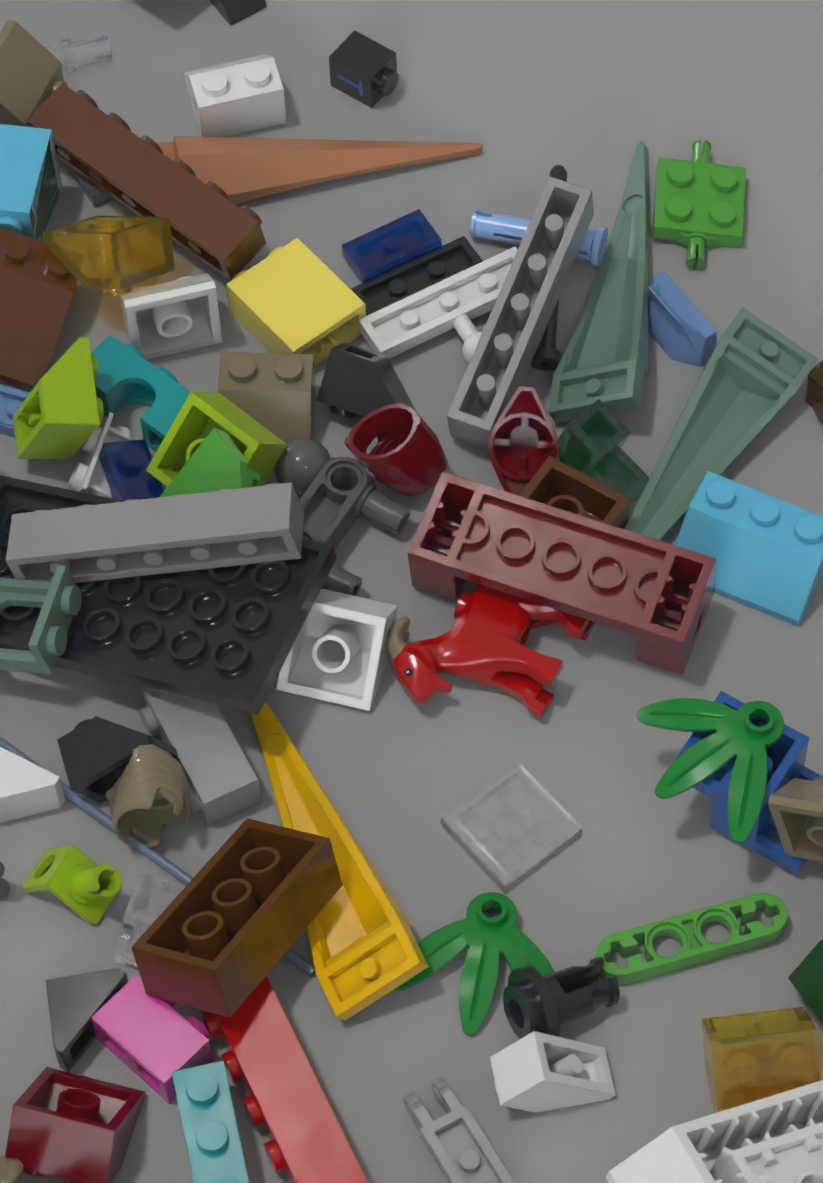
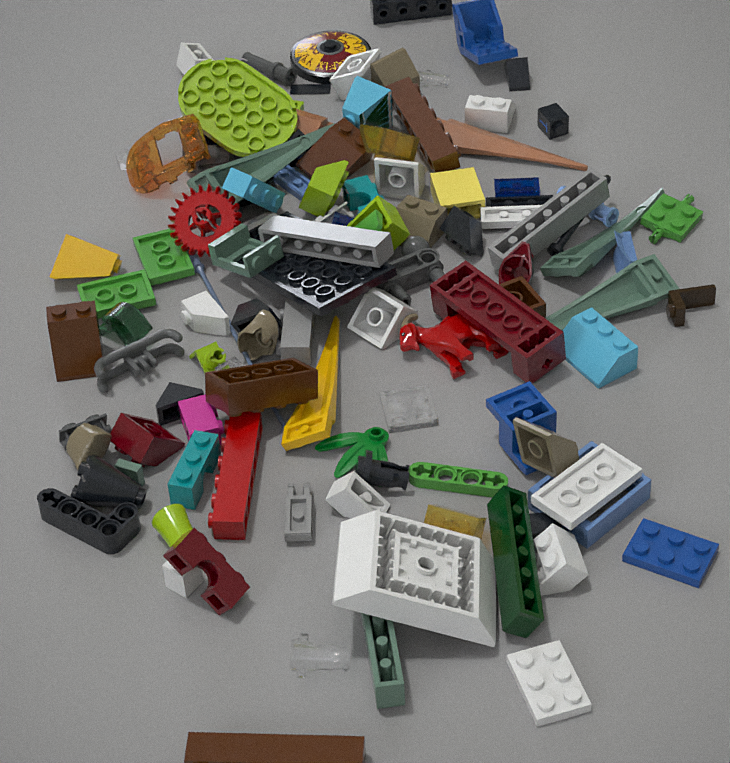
camera: 30 degrees right, 15 degrees down
(406, 451) = (457, 249): dark red helmet -> none
(594, 448) = (548, 283): clear green brick -> none
(733, 738) = (518, 394): green plant -> none

